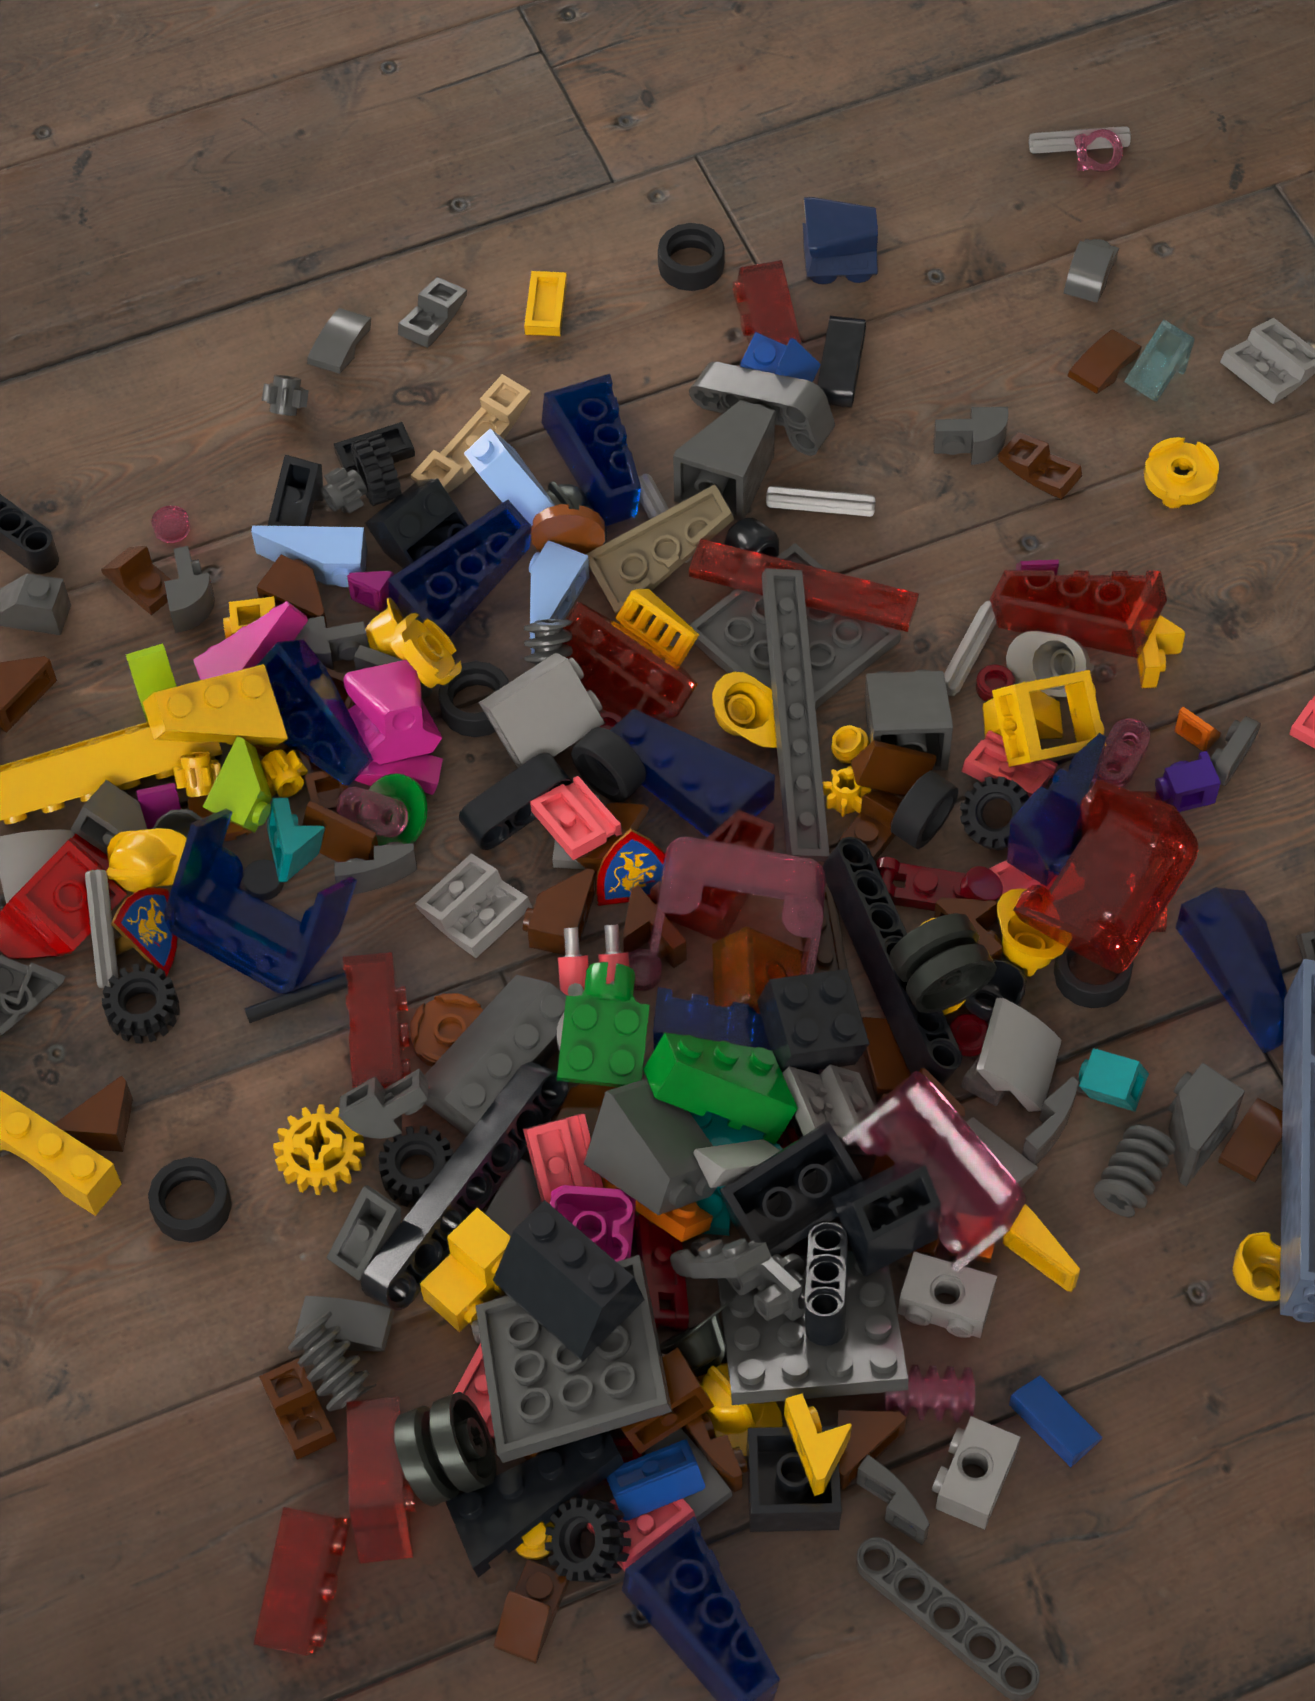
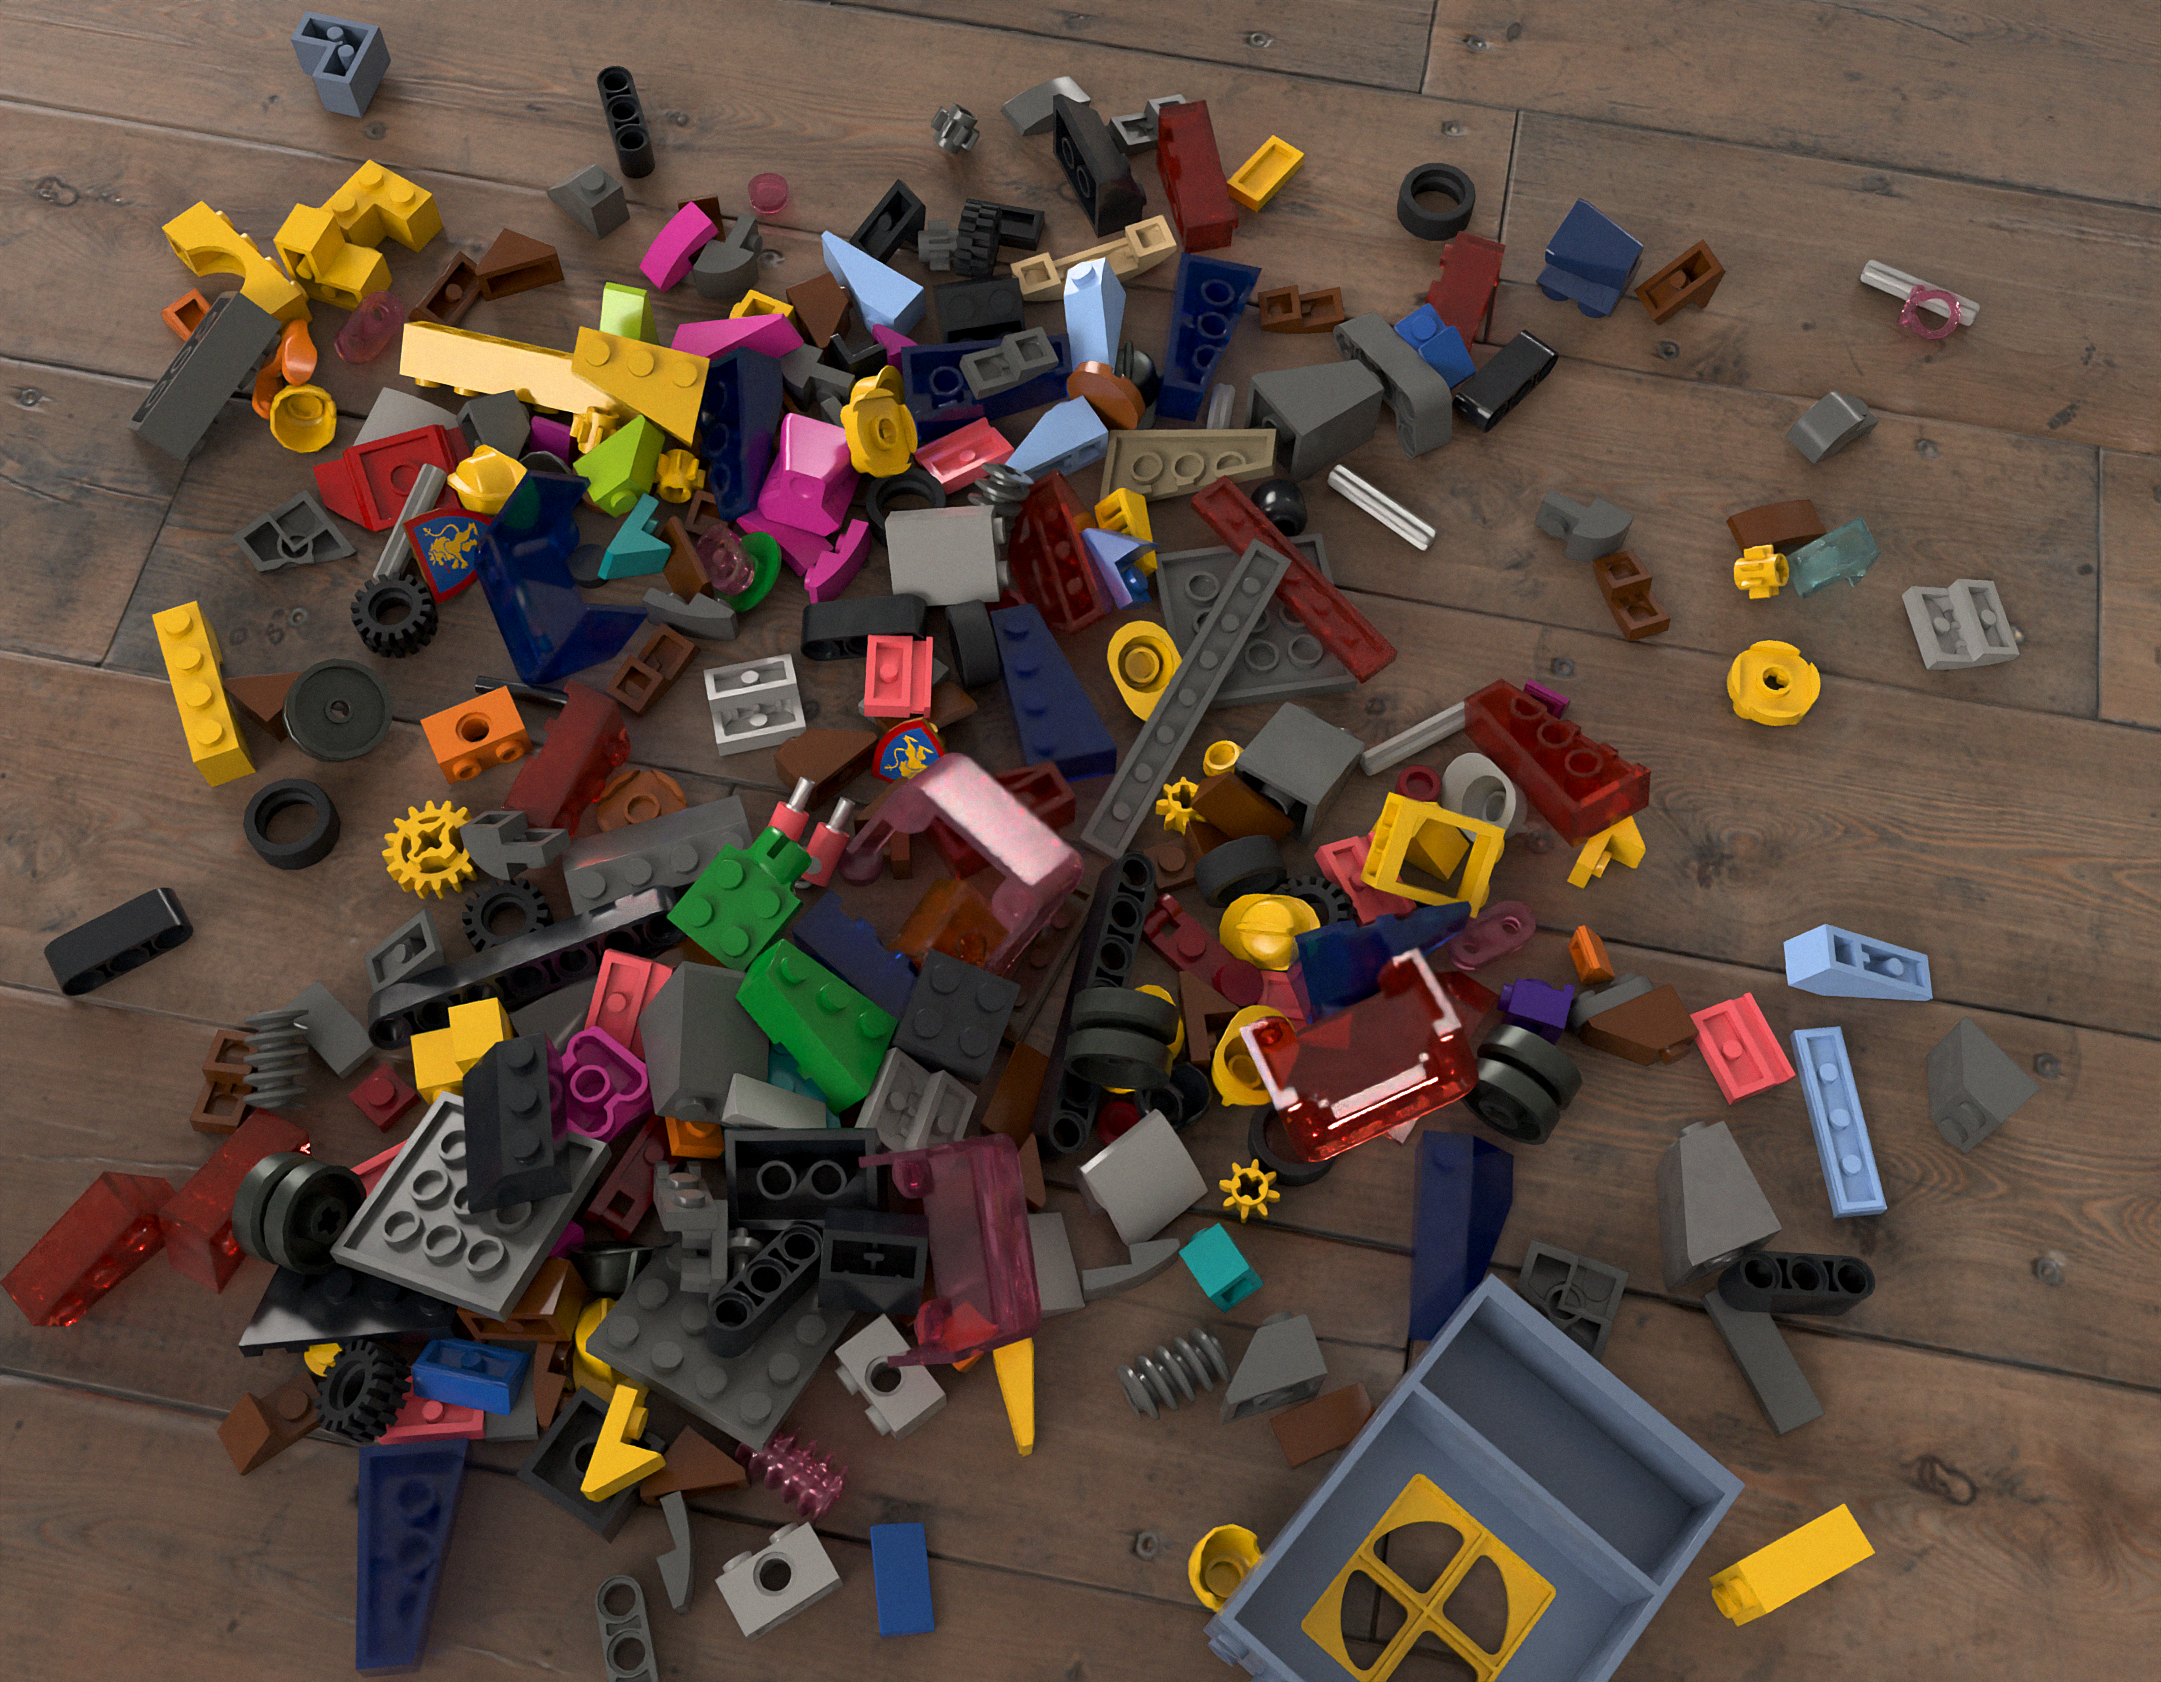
camera: 30 degrees right, 5 degrees up
(126, 1364) = (118, 941): none -> black beam
(137, 606) = (669, 253): none -> dark pink slope
(168, 1092) = (317, 731): none -> pearl dark grey wheel
(285, 1028) = (455, 729): none -> orange brick
(351, 608) = (860, 360): none -> black panel
(375, 920) = (655, 670): none -> reddish brown slope
(419, 368) = (1095, 167): none -> black slope
(424, 1345) = (384, 1097): none -> dark red plate
(457, 778) = (838, 569): none -> dark pink slope
(483, 545) = (1009, 365): none -> dark grey slope
(489, 633) = (959, 455): none -> coral plate
(502, 334) = (1194, 178): none -> clear red wedge
(653, 393) = (1295, 313): none -> reddish brown slope
(663, 640) = (1115, 558): none -> slope
(917, 216) = (1685, 279): none -> reddish brown slope
(971, 838) = (1263, 928): none -> yellow piece
(1097, 1009) = (1245, 1203): none -> yellow gear
(1118, 398) = (1761, 572): none -> yellow gear
(1227, 835) = (1521, 1084): none -> pearl dark grey wheel
(1269, 754) = (1643, 1029): none -> reddish brown slope

